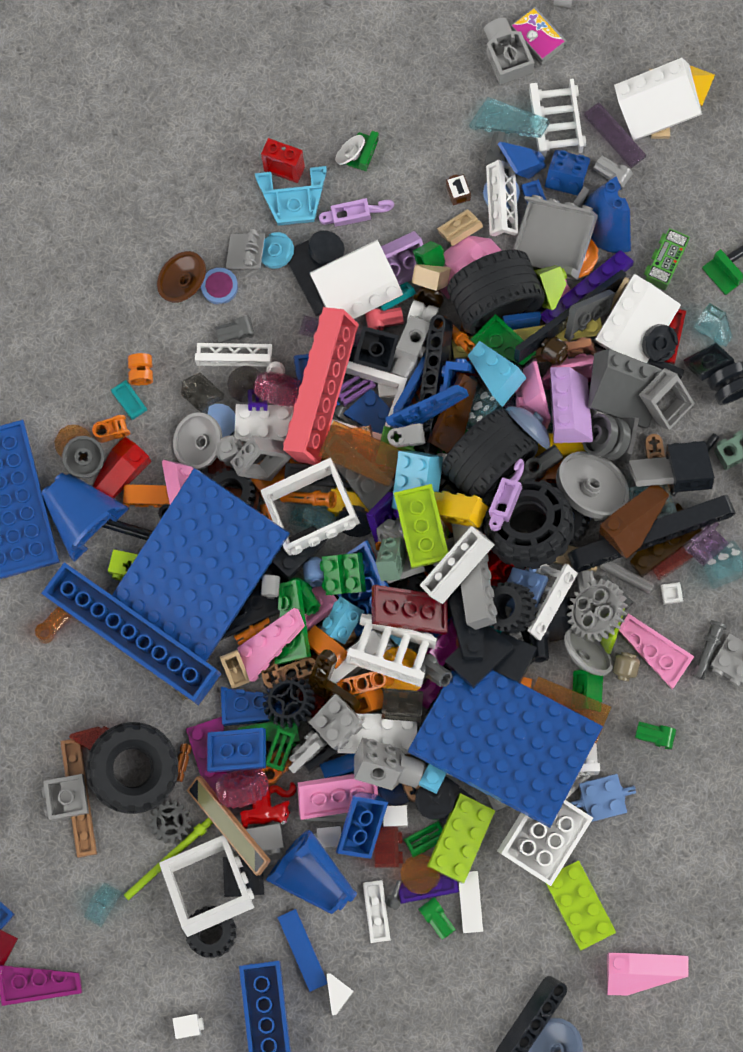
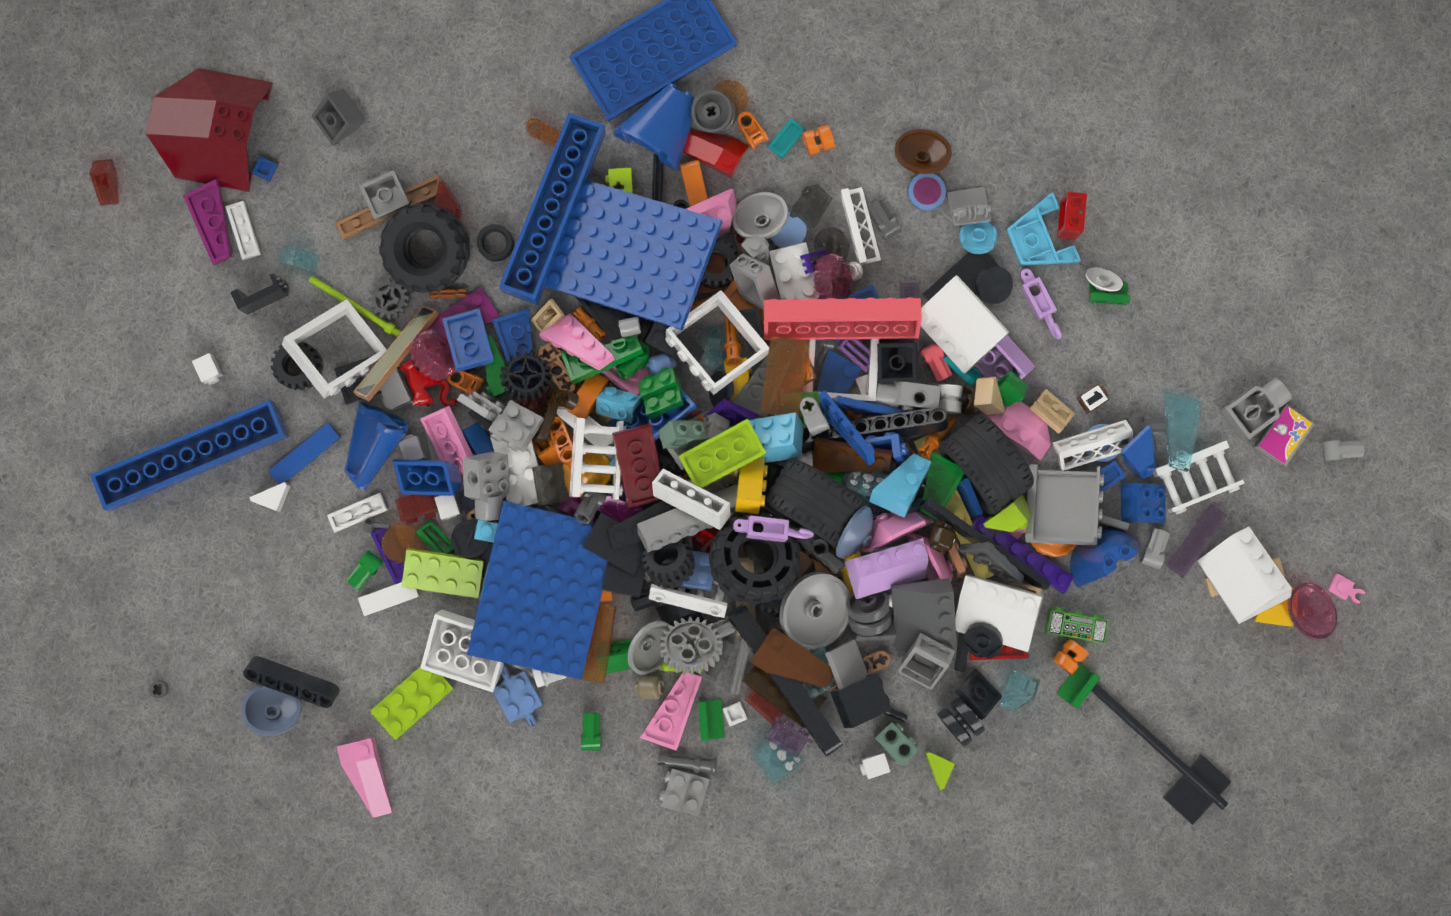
camera: 70 degrees right, 10 degrees up
(56, 954) = (243, 230): none -> white tile
(133, 950) = (262, 298): none -> black panel
(134, 693) = (509, 244): none -> black tyre
(275, 765) = (484, 381): green tile -> none
(671, 617) = (711, 719): none -> green panel
(691, 23) = (1343, 588): none -> bright pink plate
(698, 276) = (1065, 661): none -> orange wheel
(706, 52) = (1312, 611): none -> clear pink dish

